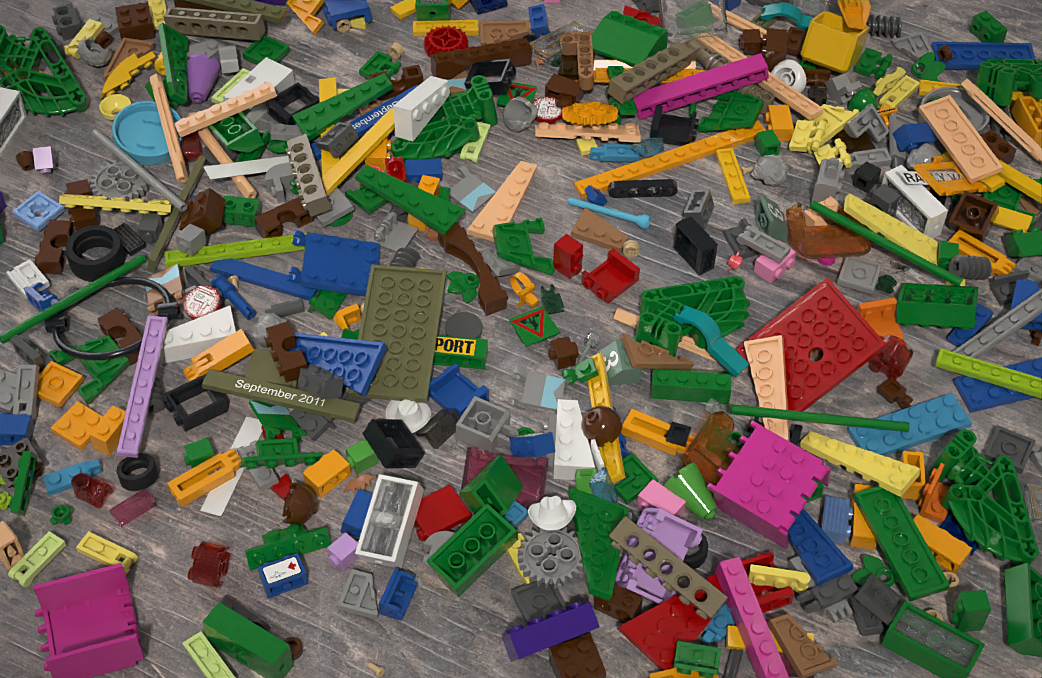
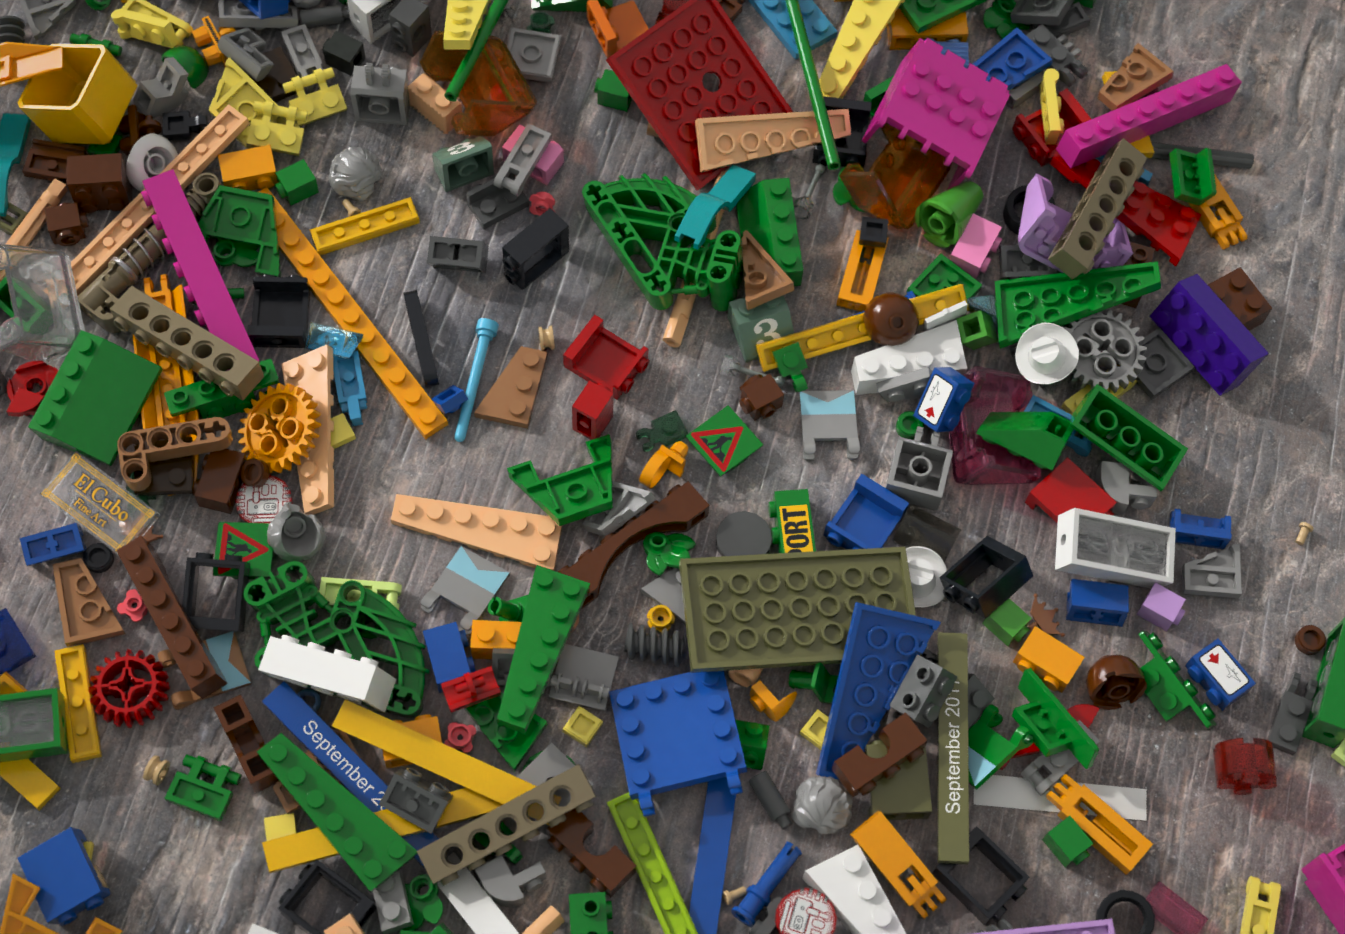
camera: 105 degrees left, 15 degrees up
(362, 230) = (582, 726): none -> light yellow tile

